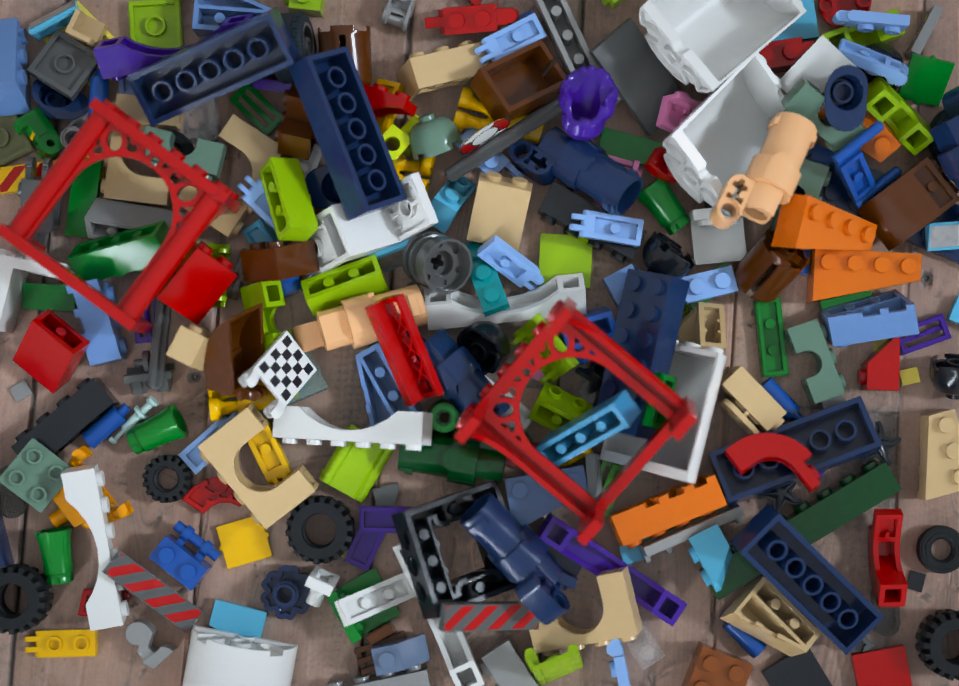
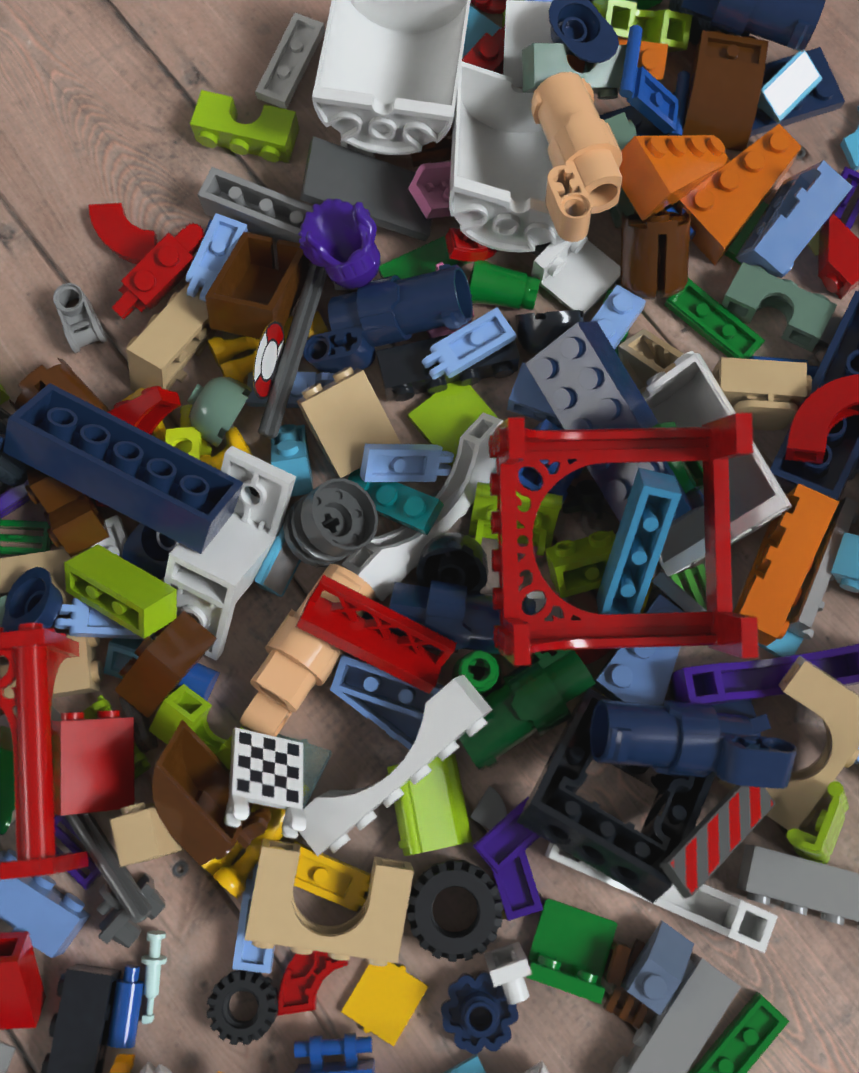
camera: 40 degrees left, 10 degrees down
(158, 430) = (187, 962): green plant -> none
(233, 163) = (32, 600): none -> dark blue piece
(346, 281) = (252, 627): lime brick -> none
(374, 599) = (579, 933): white plate -> none

